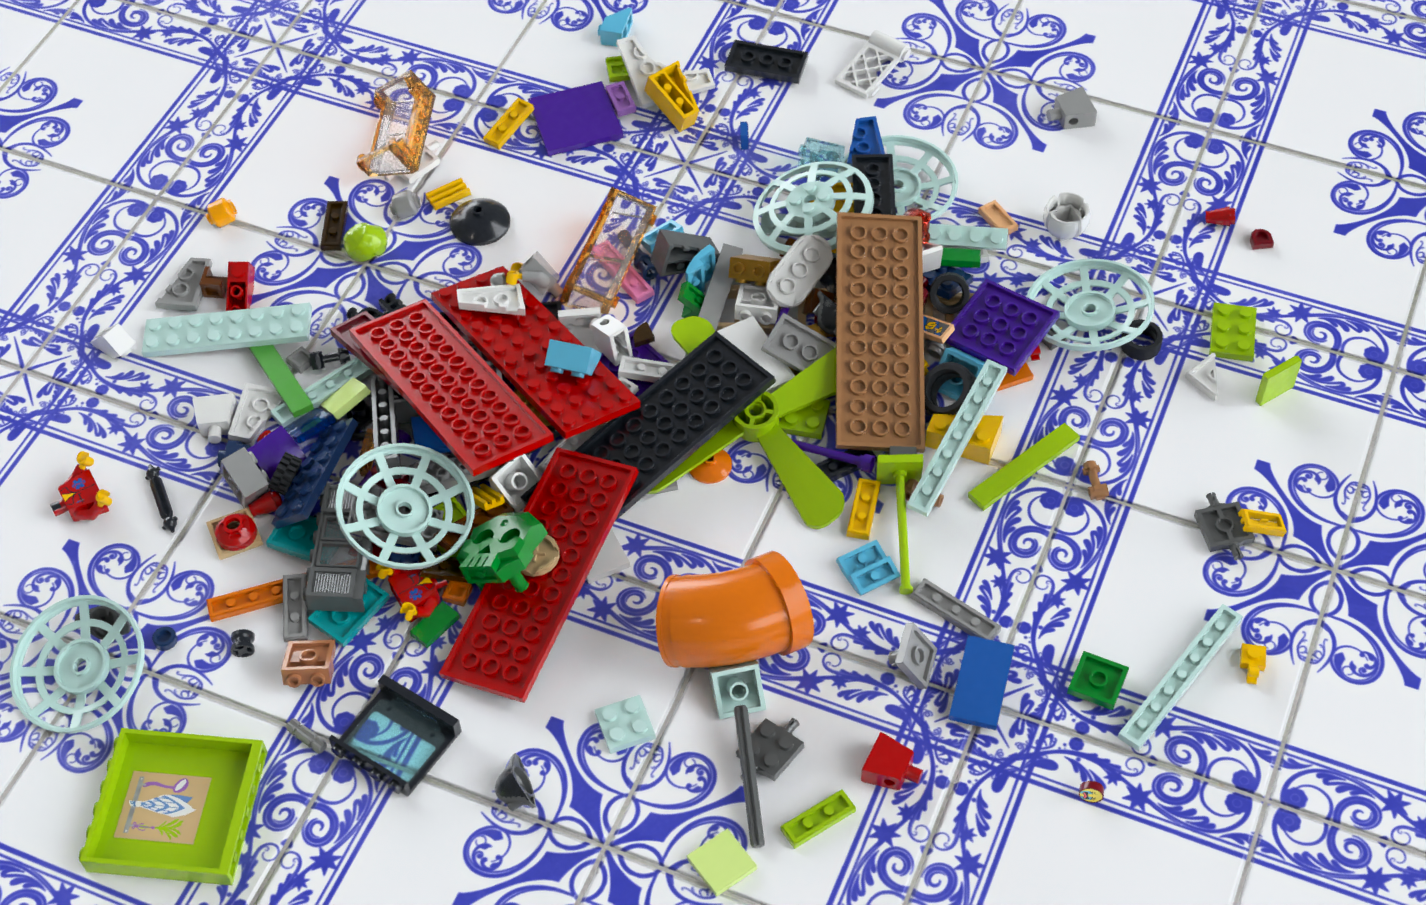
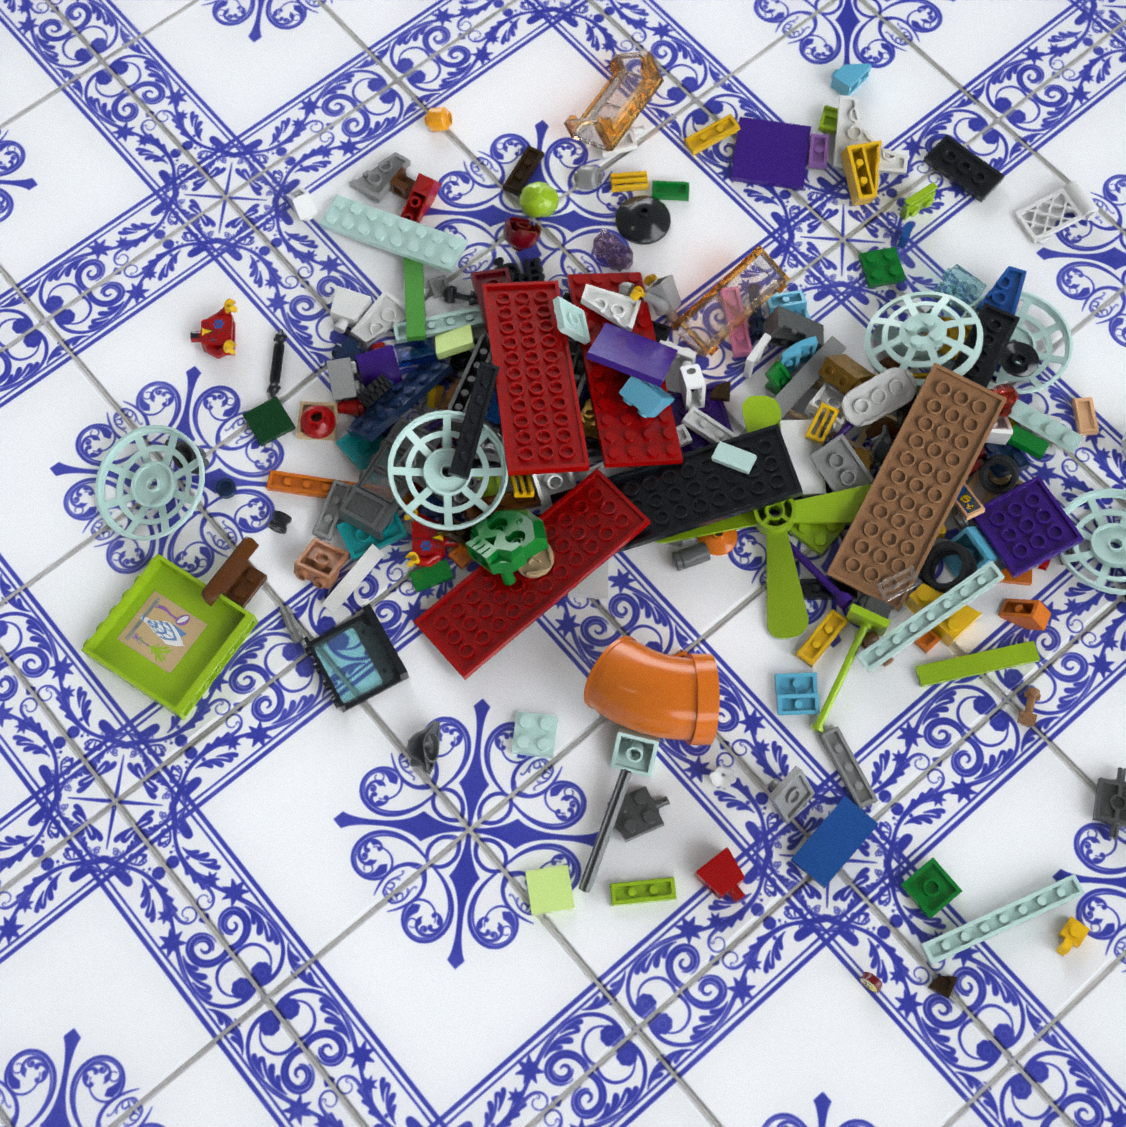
camera: 25 degrees right, 15 degrees up
(180, 555) = (269, 421): none -> dark green tile
(220, 713) = (236, 577): none -> reddish brown plate
(349, 455) = (434, 396): none -> yellow tile
(351, 663) = (353, 579): none -> white sticker
(363, 277) = (520, 233): none -> dark red cylinder
(409, 446) = (474, 420): none -> black tile
(460, 323) = (571, 320): none -> light aqua plate
(465, 257) = (613, 251): none -> clear purple brick
(494, 186) = (670, 190): none -> green tile
(539, 326) = (632, 354): none -> dark purple tile
(659, 288) = (755, 355): none -> white tile
(690, 377) = (734, 457): none -> light aqua tile
(694, 490) = (690, 556): none -> dark grey piece
(737, 171) = (881, 267): none -> green plate
(740, 102) = (918, 201): none -> lime plate
(758, 331) = (815, 438): none -> yellow tile
(838, 673) = (722, 777): none -> white plant
(912, 190) = (1022, 353): none -> black dish
(920, 410) = (914, 575): none -> clear tile
(965, 467) = (927, 641): none -> orange tile
(1043, 402) = (1025, 613): none -> orange slope
(1161, 763) = (943, 985): none -> dark brown tile

